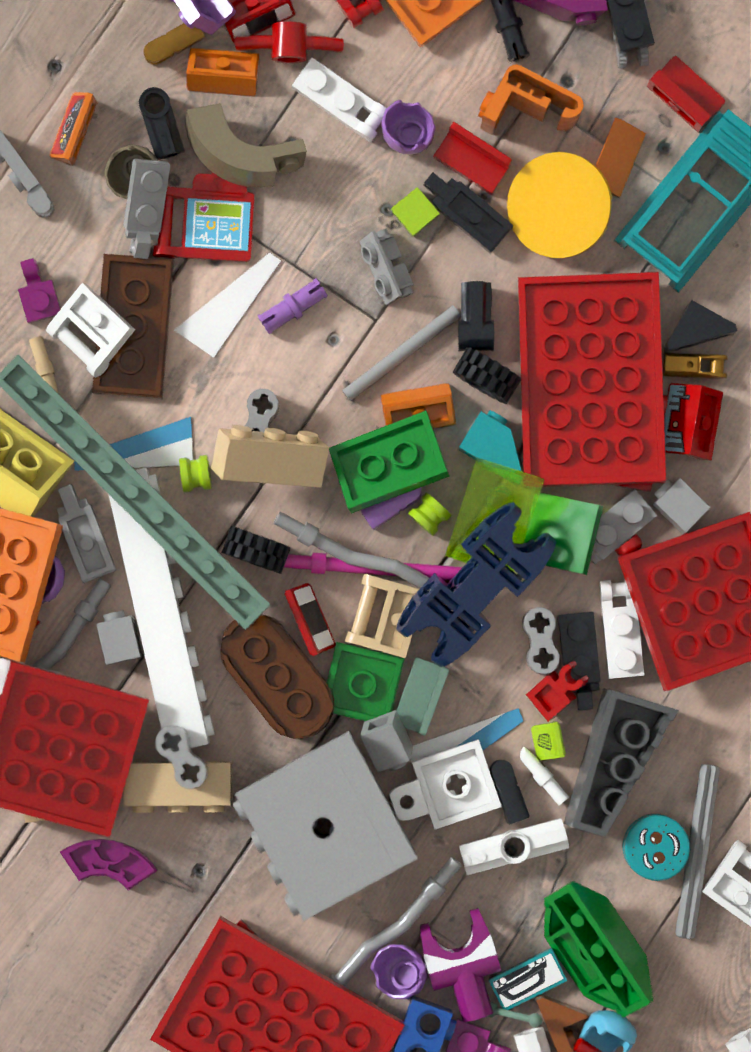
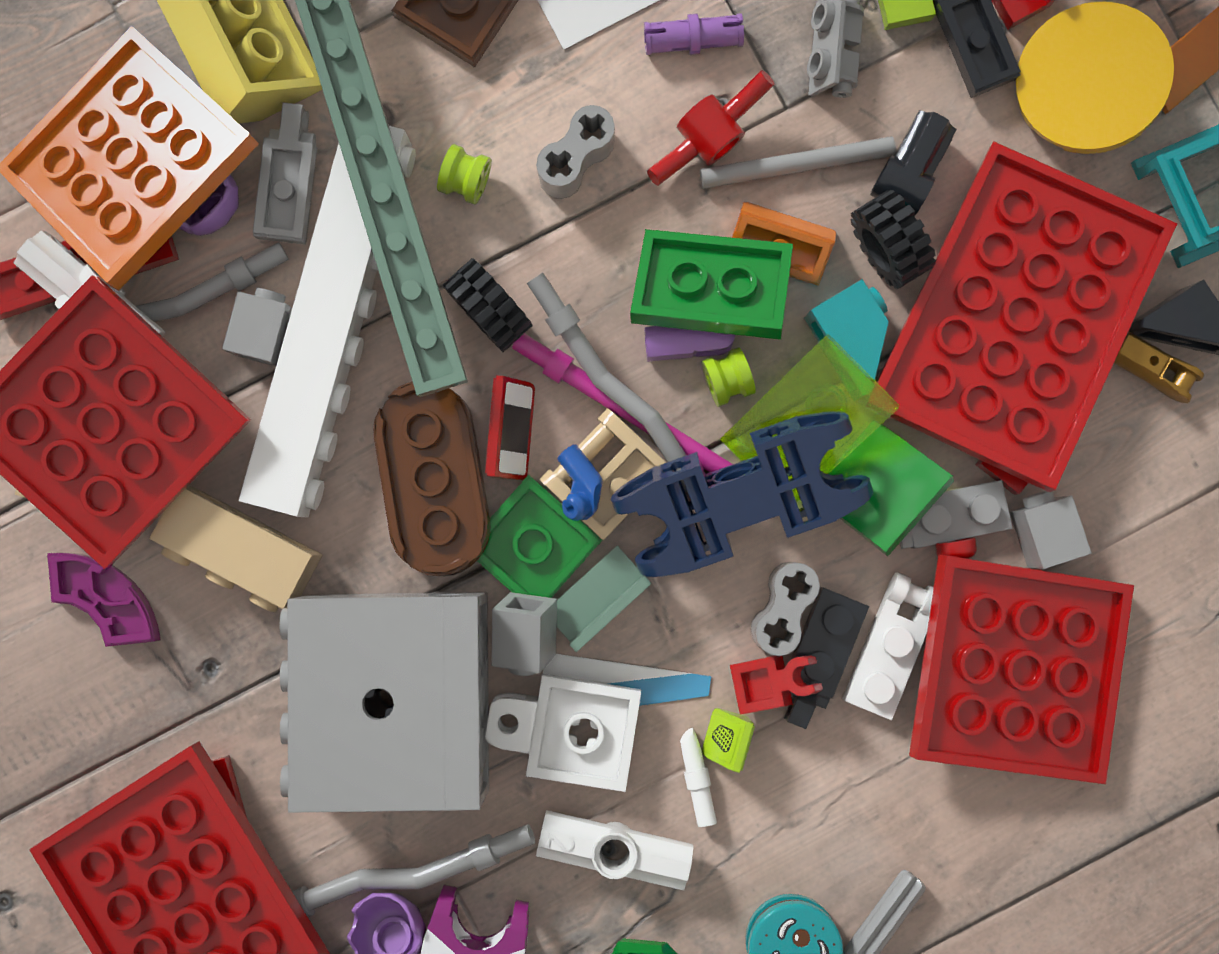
camera: 30 degrees right, 0 degrees up
(156, 447) = (437, 120): sticker -> none
(181, 757) = (249, 515): light grey axle -> none
(270, 456) = (565, 193): tan brick -> none
(336, 363) = (711, 129): none -> red piece
(377, 630) = (586, 484): none -> blue arm
(508, 791) = (644, 776): black bar -> none
(615, 758) = (800, 809): dark grey wedge -> none
(692, 420) = (1120, 432): red panel -> none

